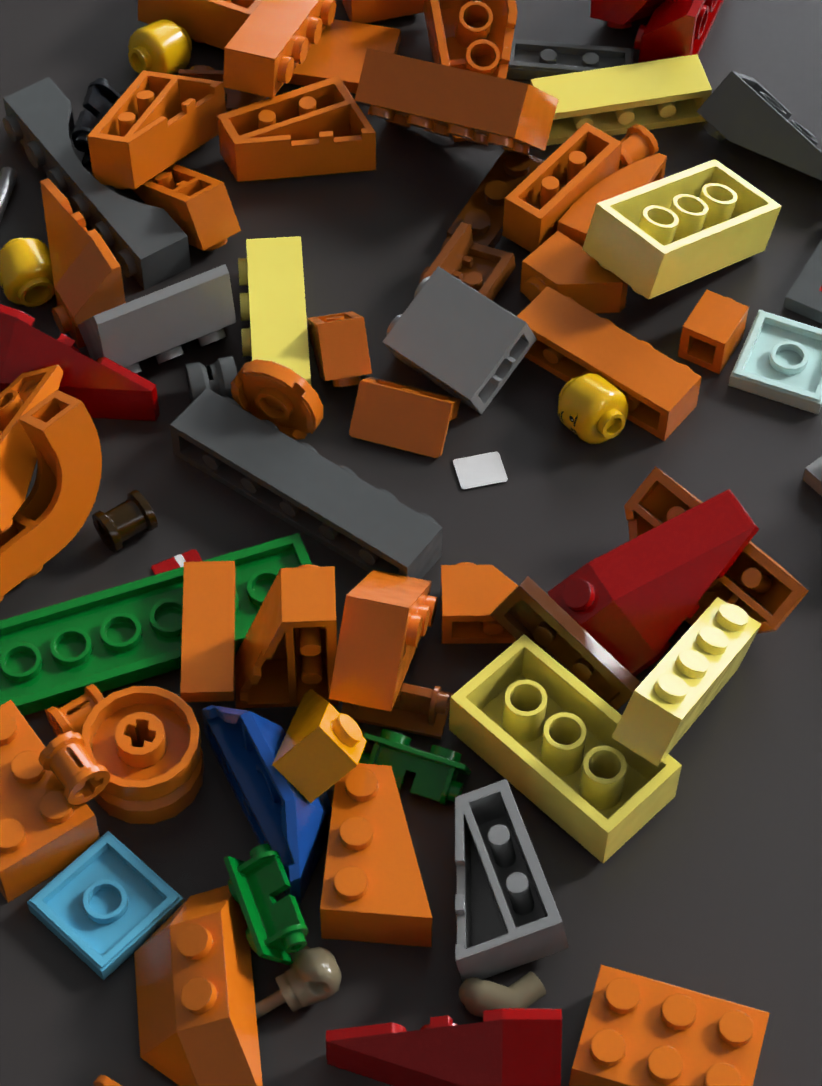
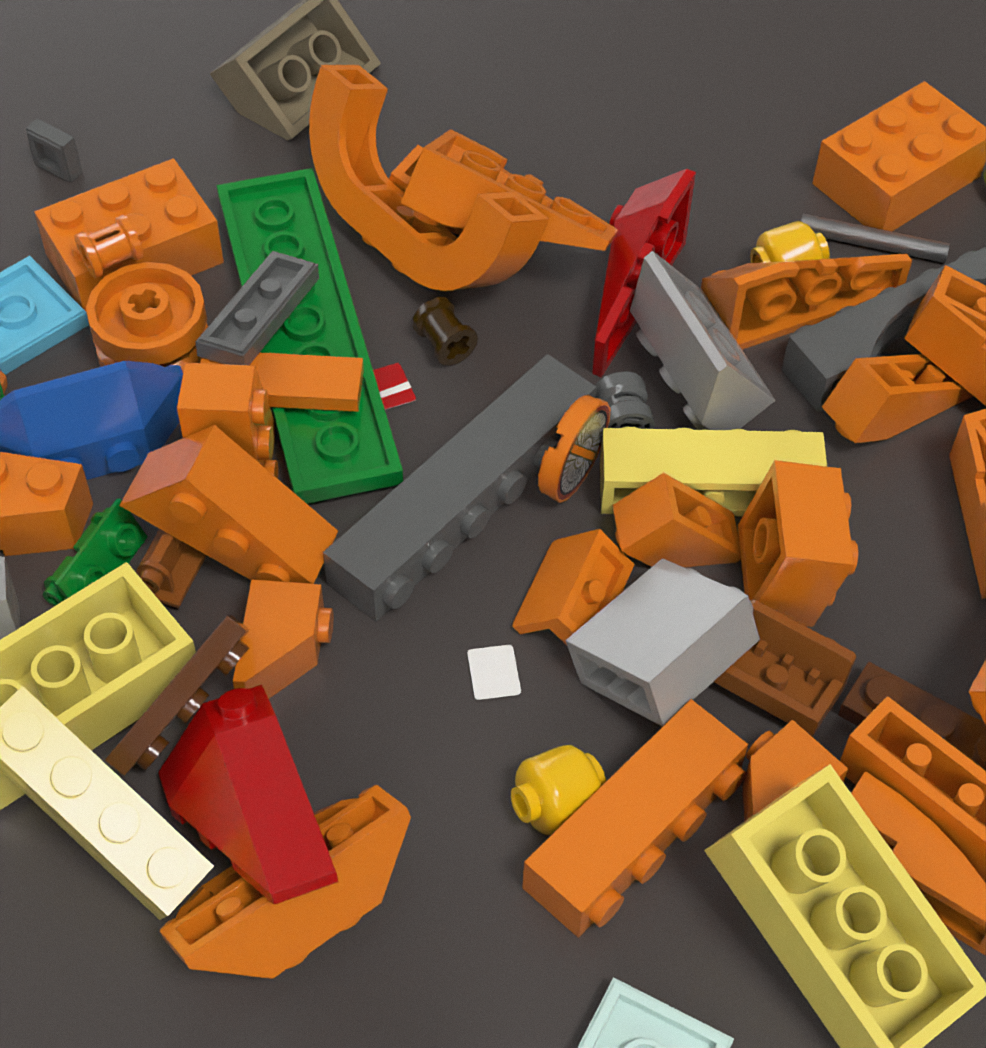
camera: 95 degrees right, 0 degrees up
(73, 714) = (216, 289): orange bush -> none
(126, 652) = (257, 310): none -> dark grey tile
(318, 747) = (86, 435): light orange slope -> none
(365, 255) = (797, 540): none -> orange brick
(713, 331) = (688, 963): orange brick -> none

